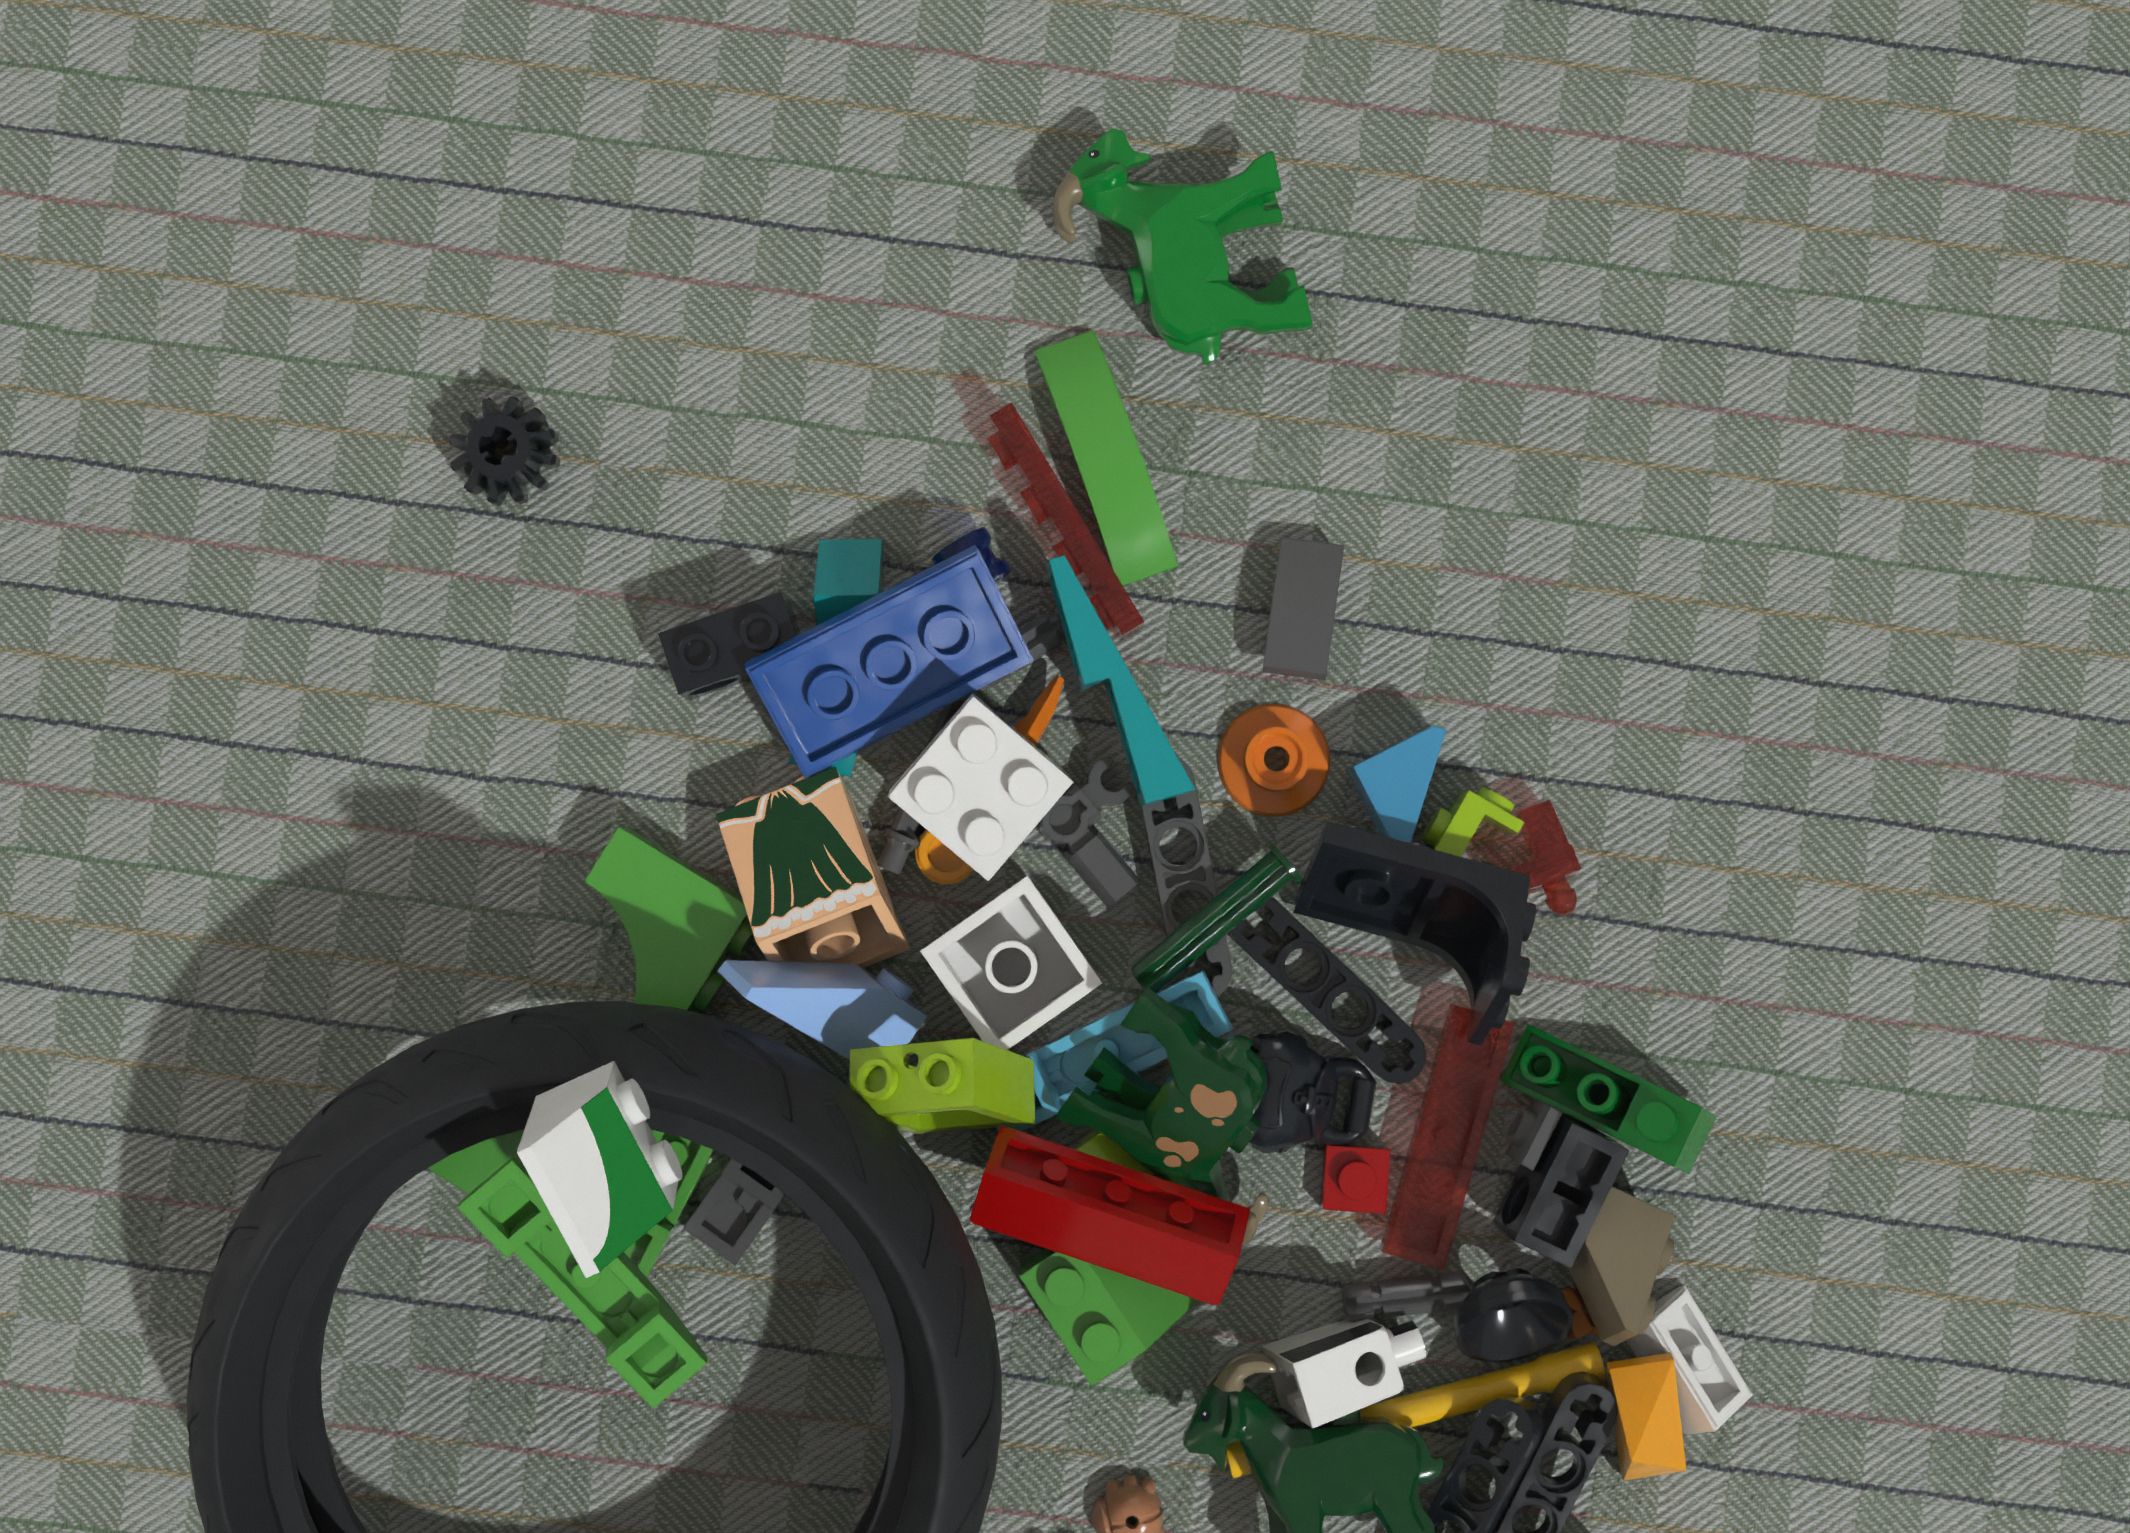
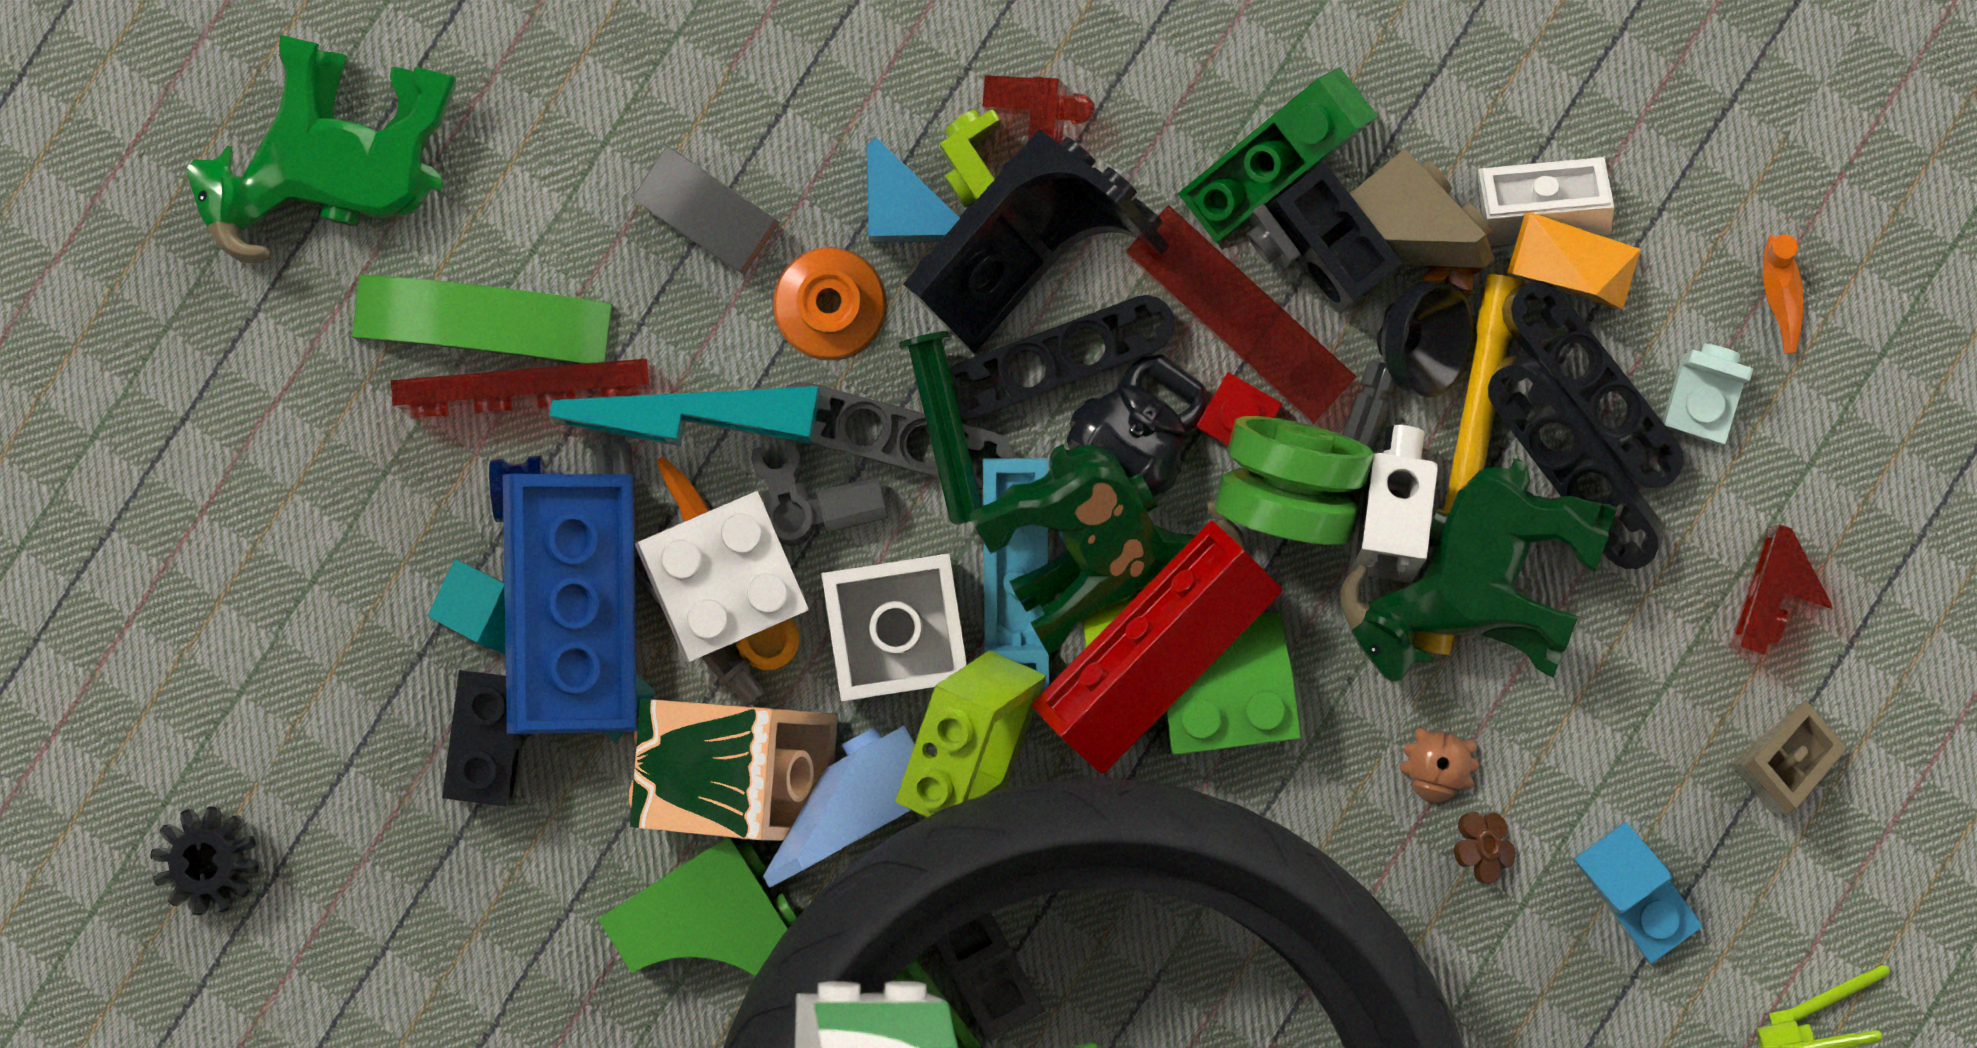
camera: 60 degrees left, 0 degrees up
(1322, 1264) = (1293, 480): none -> bright green wheel

